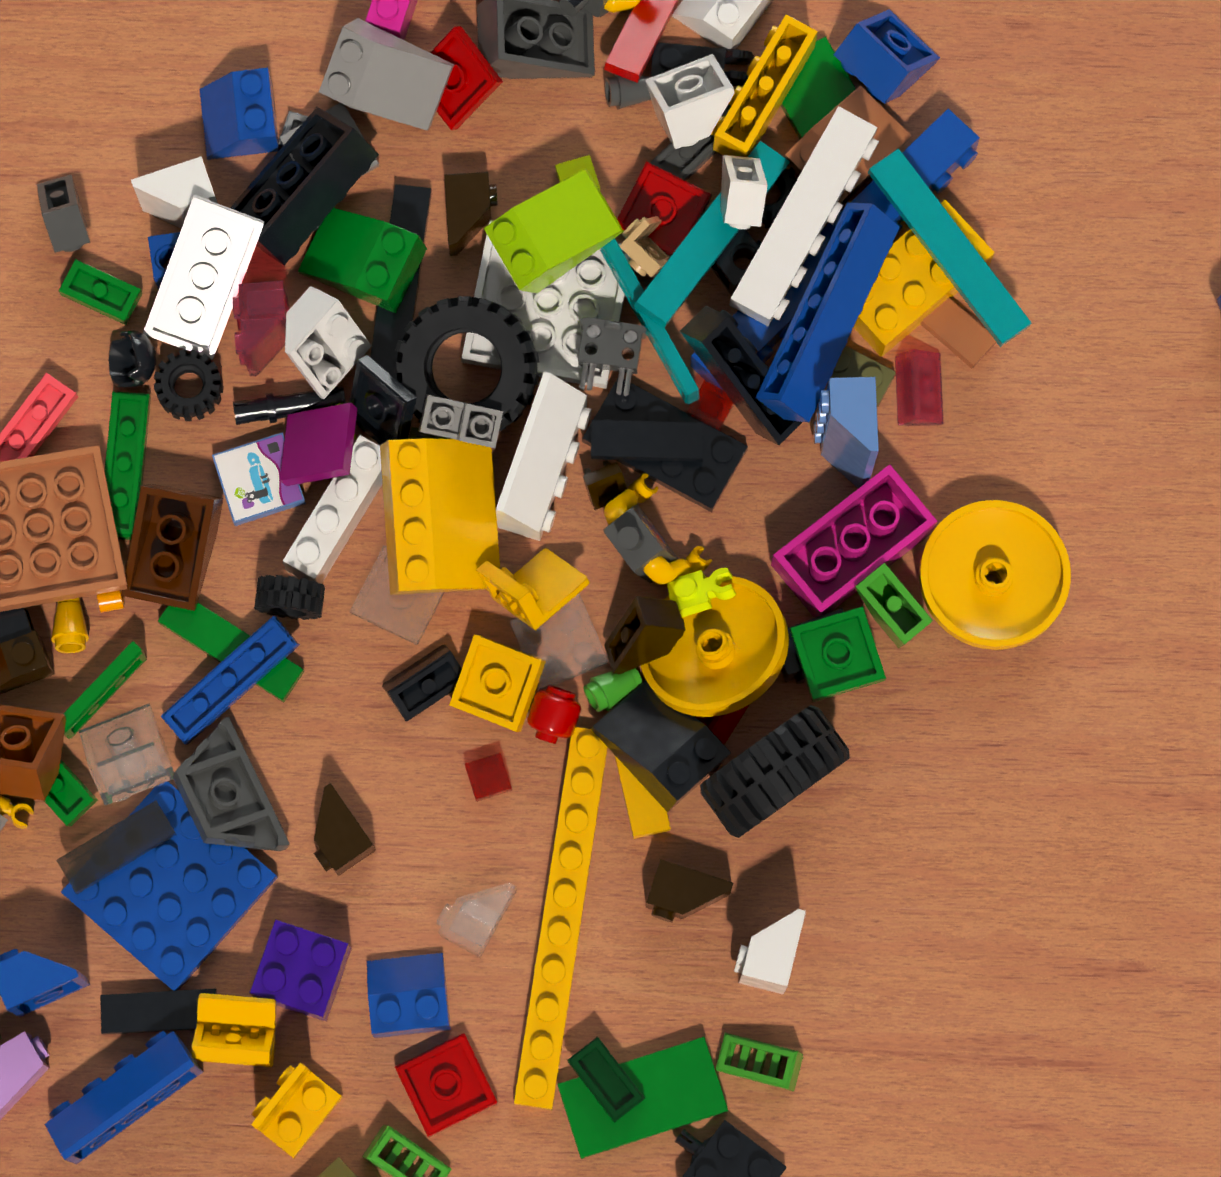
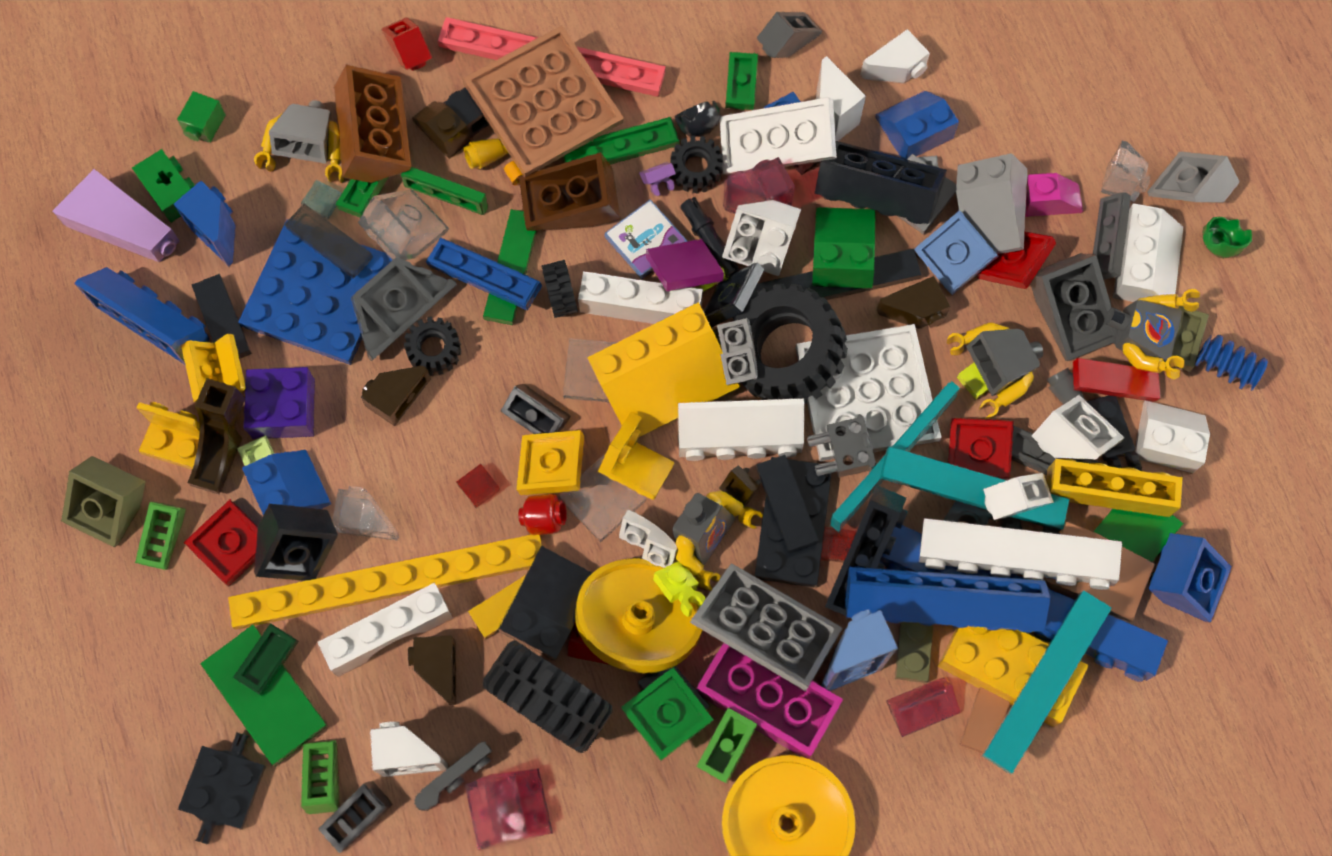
camera: 70 degrees right, 5 degrees down
(48, 842) = (322, 199): none -> clear light blue tile
(151, 102) = (897, 60): none -> white slope
(184, 435) = (658, 174): none -> medium lavender tile
(289, 749) = (433, 329): none -> black tyre
(321, 1054) = (218, 440): none -> dark brown arch
(351, 1020) = (255, 450): none -> yellowish green tile
(421, 139) = (956, 252): none -> medium blue tile
(484, 1000) = (293, 542): none -> black slope
(553, 231) = (920, 366): lime slope -> none
(569, 141) = (1003, 360): none -> dark grey torso
(609, 688) = (581, 551): bright green cone -> none
(611, 611) = (657, 545): none -> white slope
(622, 933) = (406, 617): none -> white arch
(644, 253) = (940, 438): tan bracket -> none
(644, 633) = (628, 557): dark brown slope -> none
(781, 512) = (767, 626): none -> light grey slope
(805, 1005) = (375, 795): none -> black slope
(817, 916) = (452, 777): none -> dark grey hinge
(871, 865) = (508, 808): none -> clear pink slope

